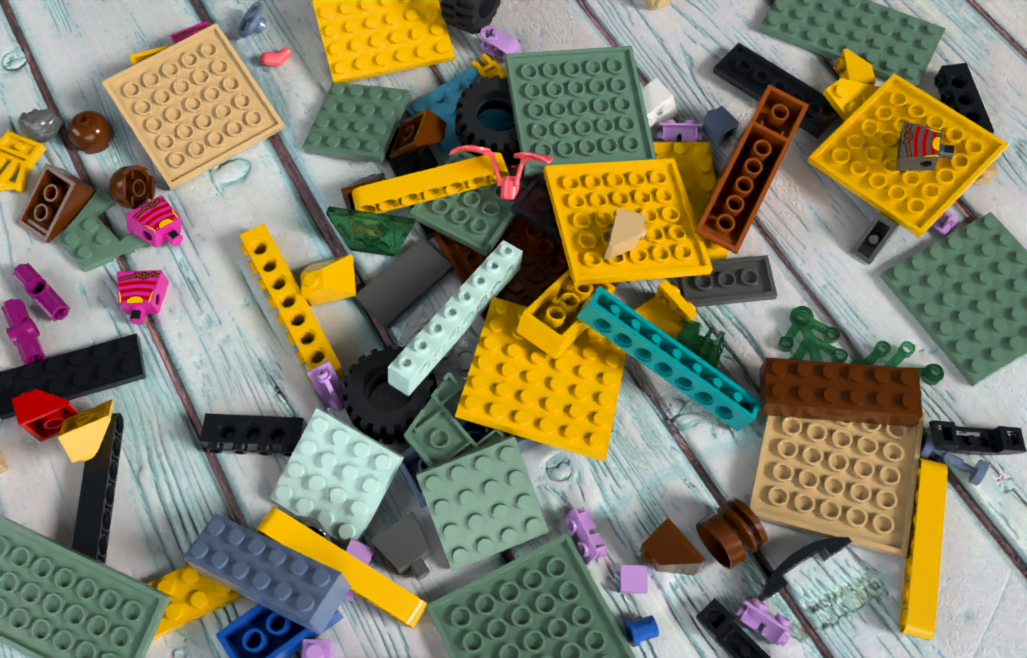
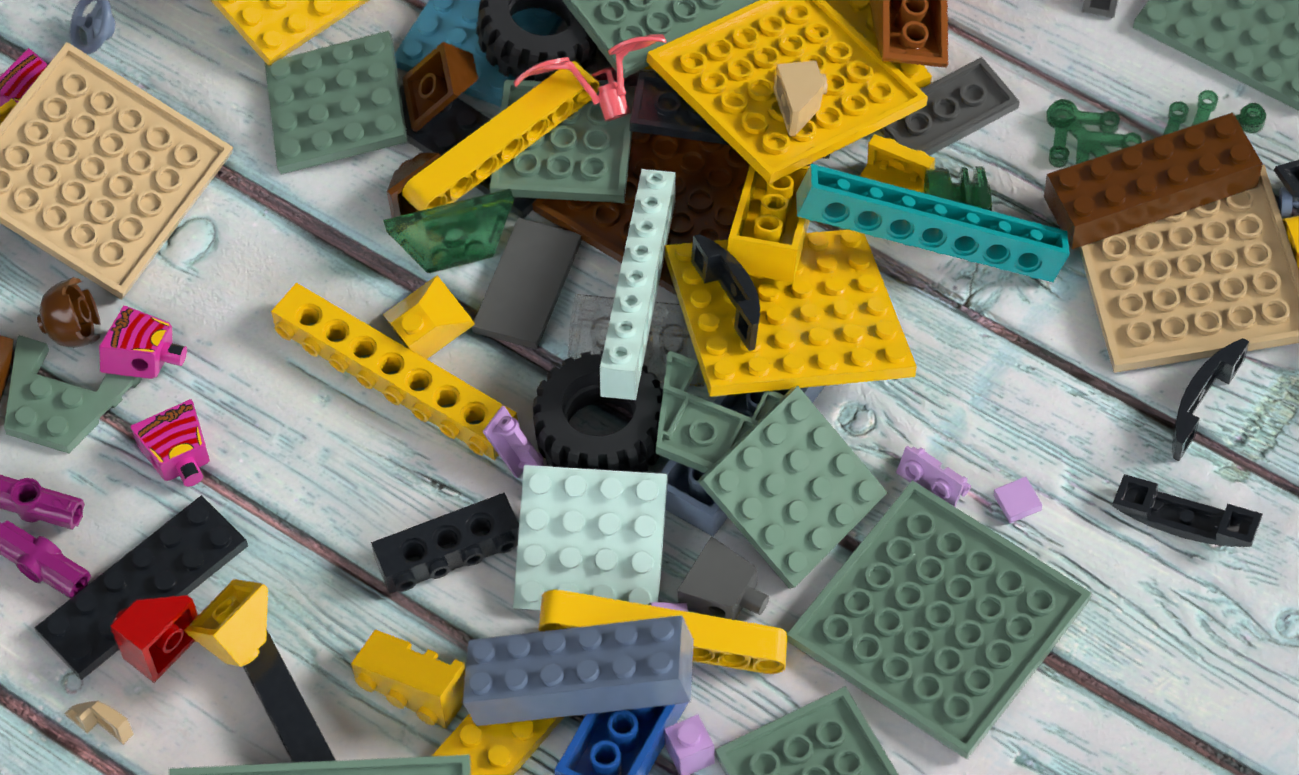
camera: 25 degrees left, 5 degrees down
(174, 514) = (411, 678): none -> yellow wedge
(275, 59) = (158, 64): coral arm -> none
(510, 327) = (718, 264): none -> black slope
(641, 630) = (1056, 546): blue bush -> none
(671, 551) = (1049, 443): reddish brown slope -> none
(731, 533) = (1107, 392): reddish brown wheel -> none
(775, 626) = (1180, 471): lavender hinge -> none

